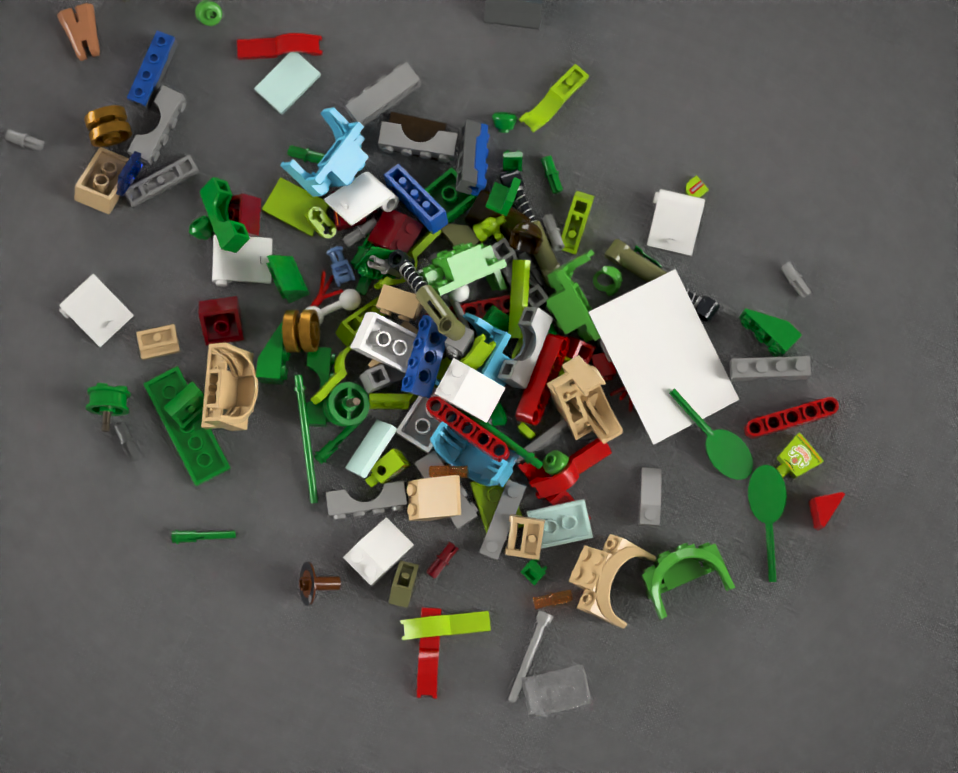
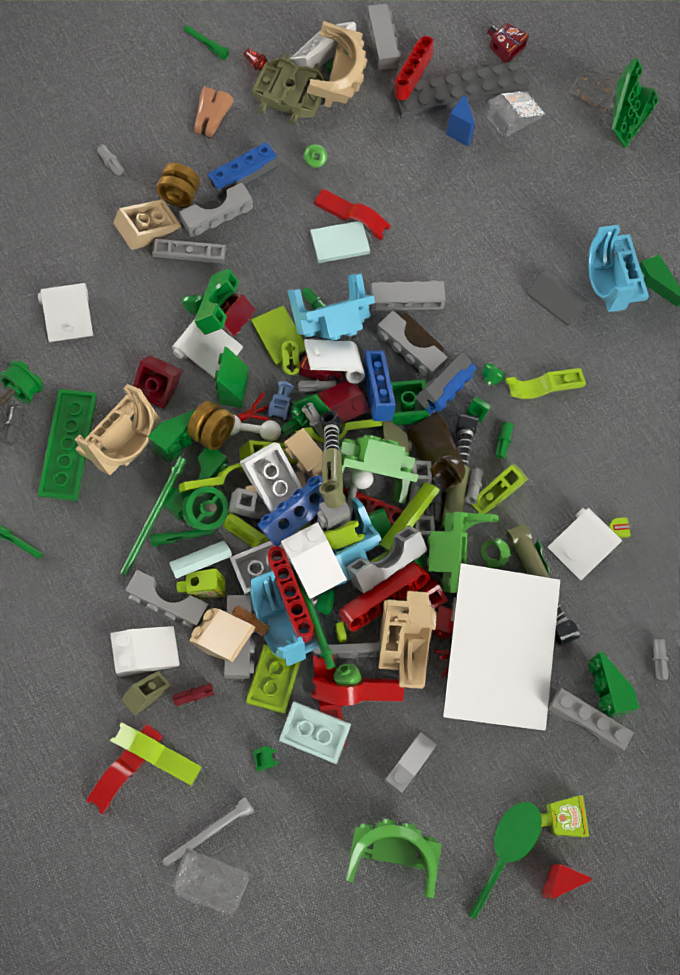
camera: 25 degrees right, 10 degrees down
(129, 173) = (167, 227): clear blue plate -> none
(158, 342) = (95, 366): tan plate -> none
(186, 405) = (77, 424): green panel -> none
(310, 583) = (67, 637): reddish brown piece -> none
(488, 227) = (424, 446): lime piece -> none
(500, 523) = (268, 694): light grey plate -> none
(502, 197) = (450, 428): green panel -> none
(531, 537) = (281, 727): tan plate -> none
(552, 599) = (264, 795): clear orange axle -> none
(596, 573) = (315, 797): tan piece -> none
(723, 447) = (504, 763): green piece -> none
(798, 411) = (593, 777): red beam -> none

